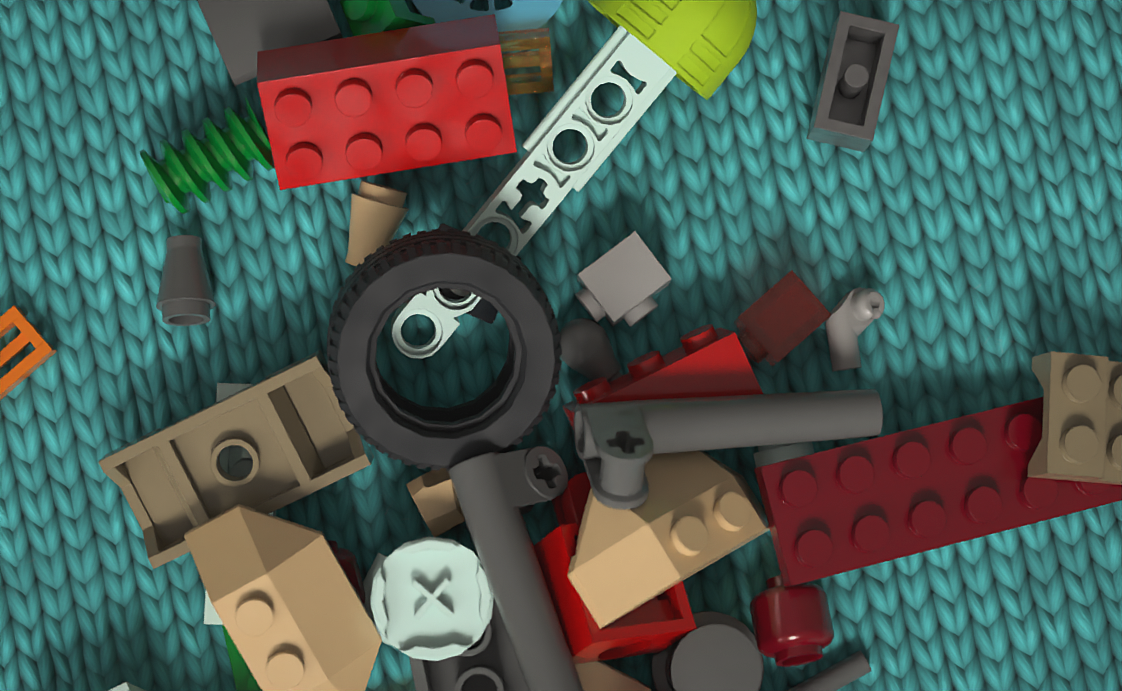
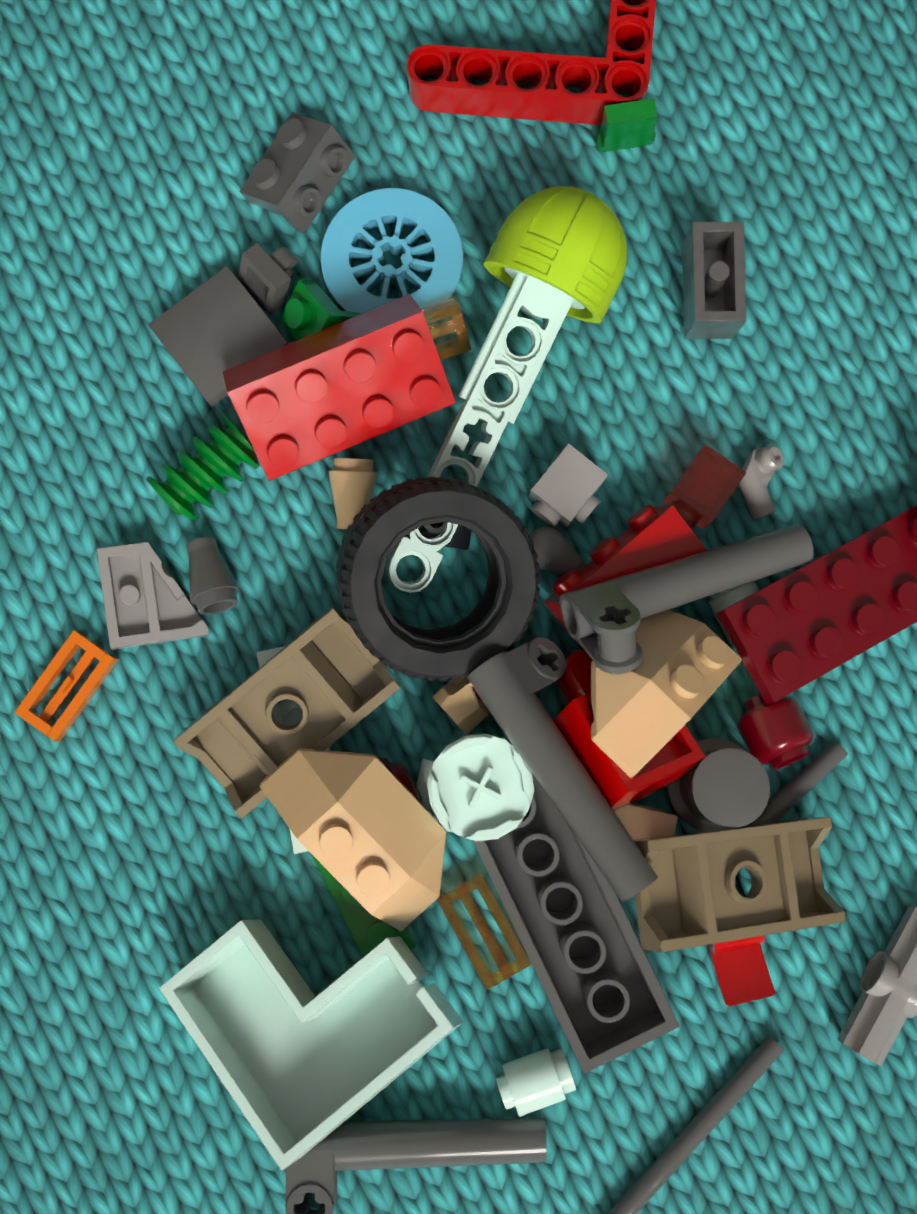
camera: 15 degrees left, 0 degrees up
(103, 290) = (143, 599): none -> light grey wing

